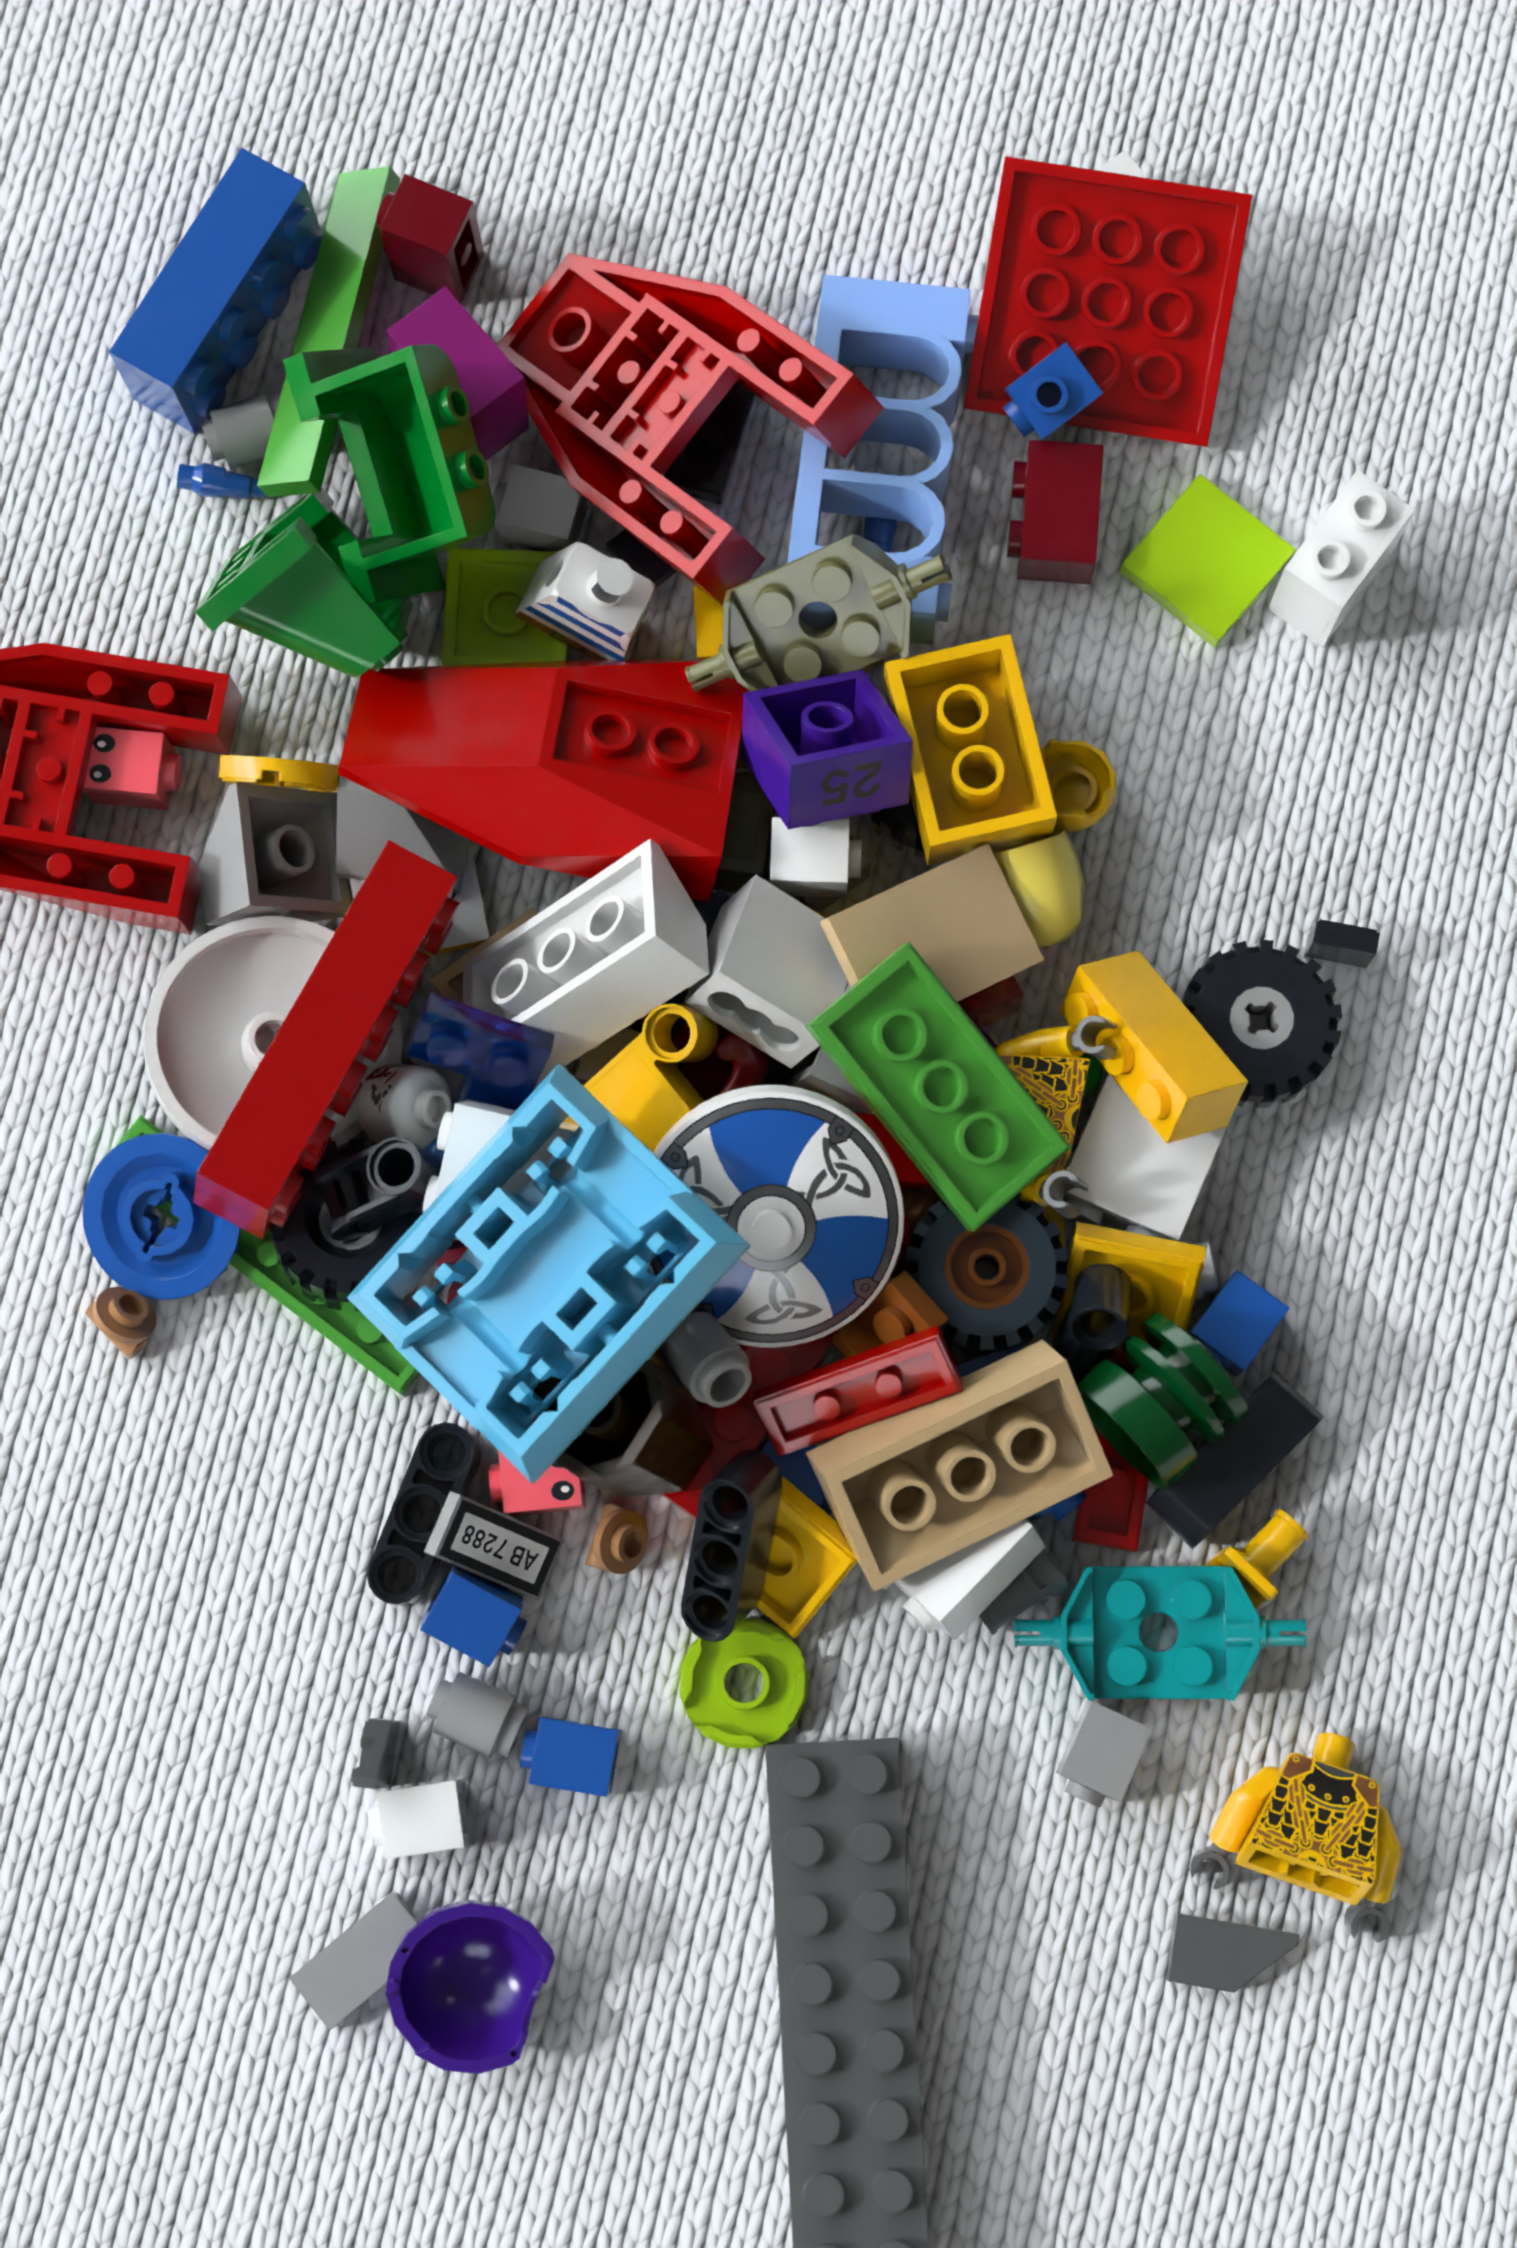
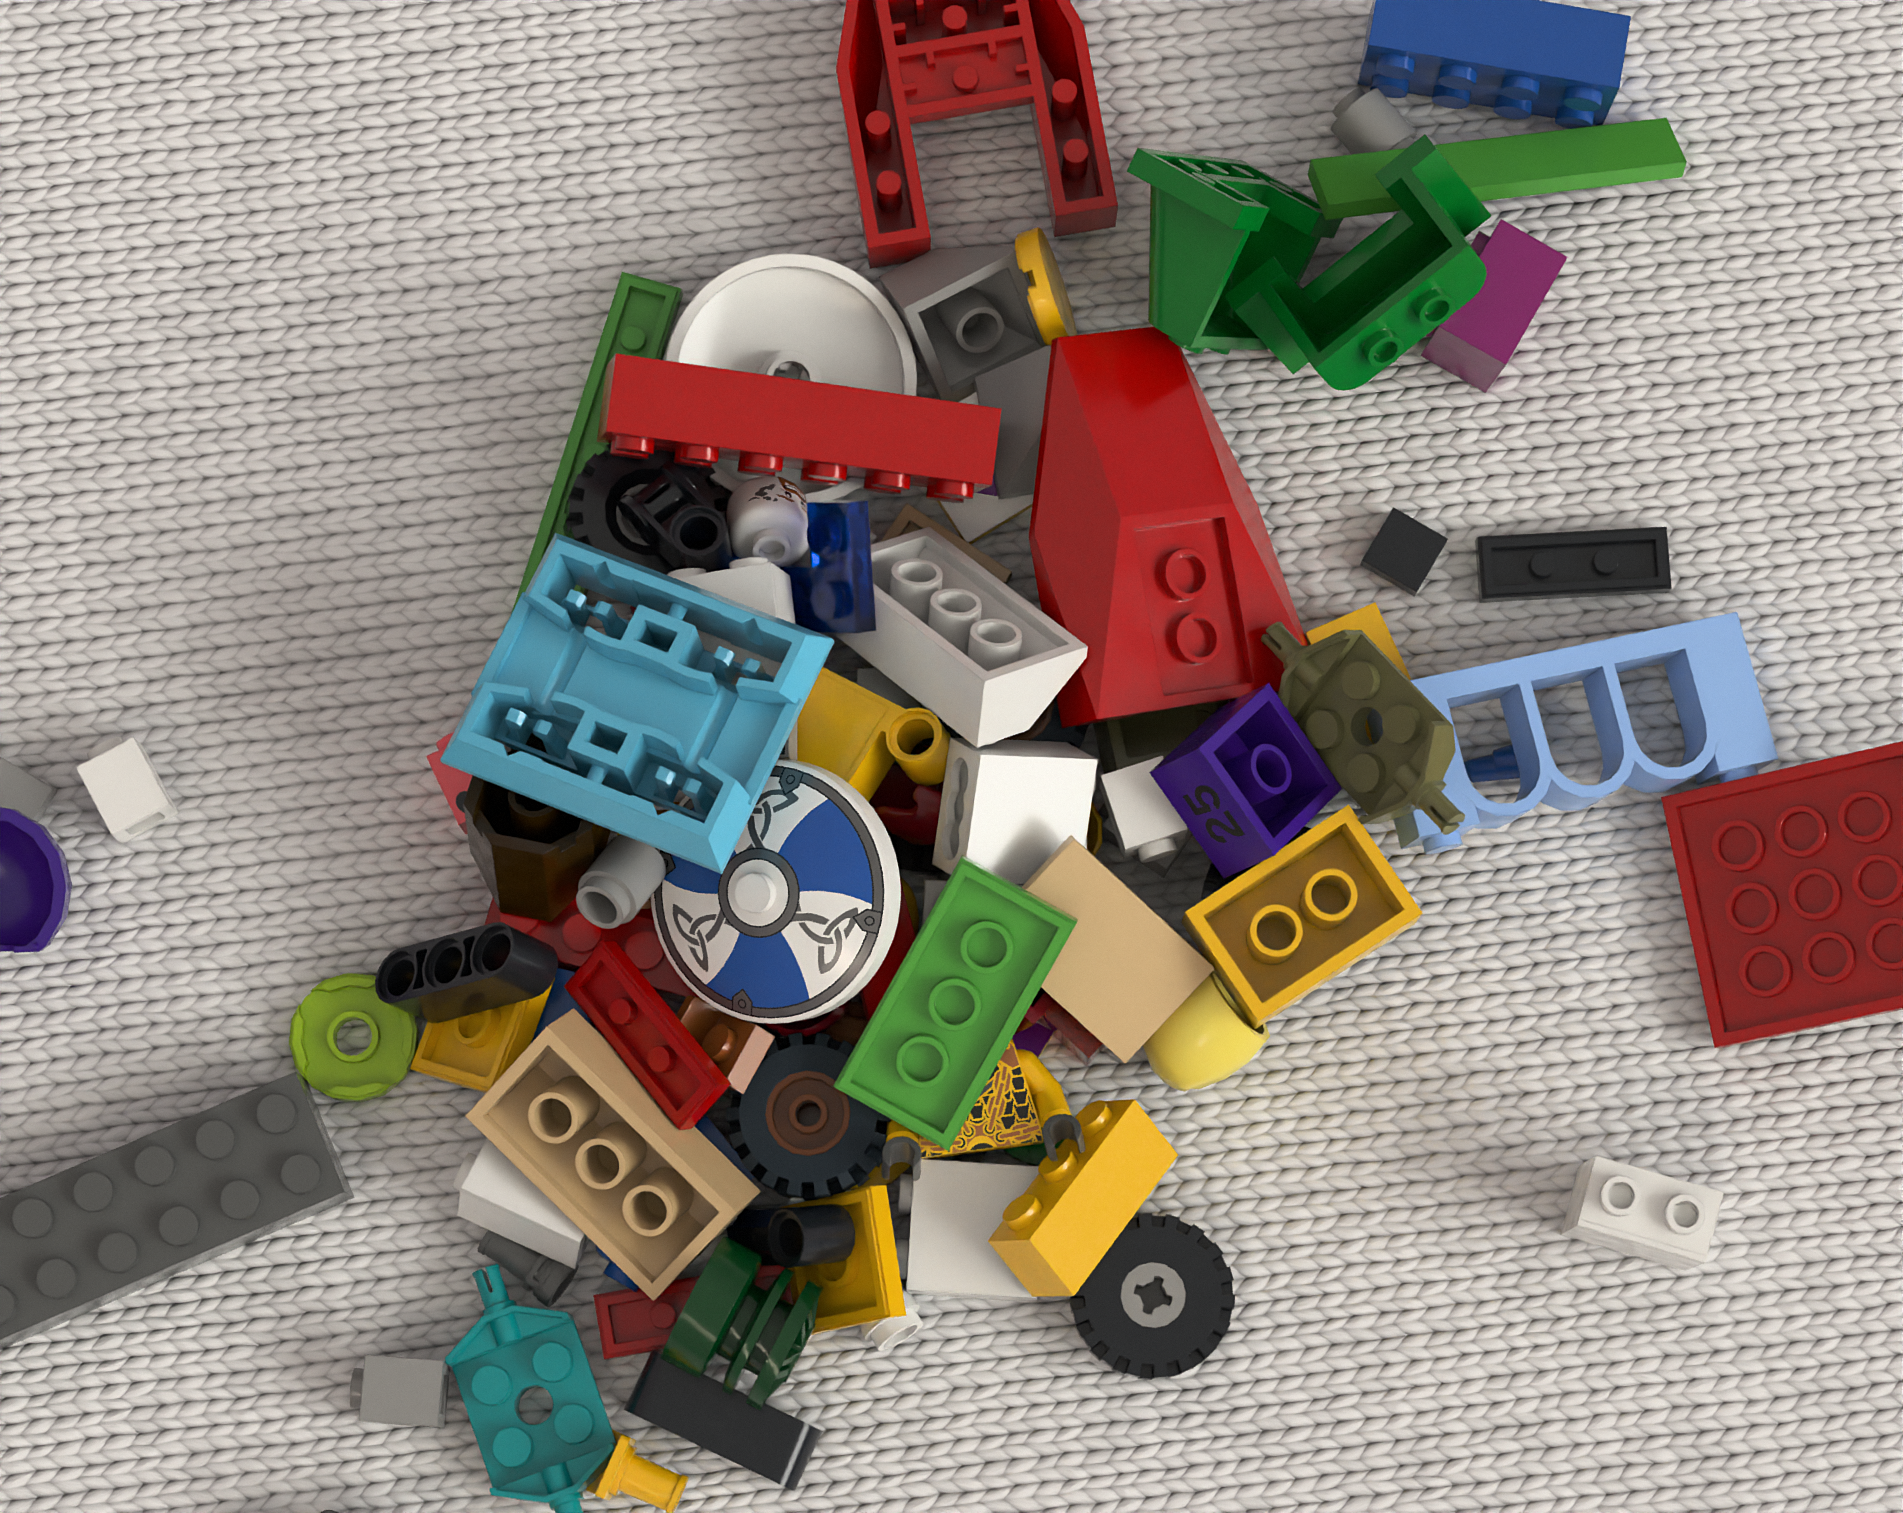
camera: 65 degrees right, 0 degrees up
(124, 1319) = (487, 347): medium nougat plate -> none
(126, 1232) = (566, 318): blue gear -> none
(132, 769) = (1004, 153): coral brick -> none
(217, 482) = (1314, 119): blue piece -> none
(377, 1754) = (168, 727): dark grey tile -> none
(420, 1481) = (376, 671): black beam -> none
(430, 237) = (1624, 227): dark red brick -> none
(474, 1616) = (325, 766): blue brick -> none
(477, 1715) = (237, 804): light grey brick -> none
(481, 605) = (1292, 441): lime tile -> none
(493, 1545) = (395, 759): tile -> none
(538, 510) = (1399, 433): light grey brick -> none
(571, 1756) = (230, 903): blue brick -> none
(587, 601) = (1319, 510): white torso -> none
(618, 1540) = (443, 874): medium nougat plate -> none
(630, 370) = (1556, 462): red wedge -> none
(1050, 393) = (1699, 873): blue brick -> none
(1058, 511) = (1591, 924): dark red brick -> none
(1080, 783) = (1320, 1034): yellow hair -> none
(1207, 560) = (1602, 1089): lime tile -> none
(1238, 1322) = (849, 1375): blue brick -> none
(1342, 943) = (1262, 1350): black tile -> none

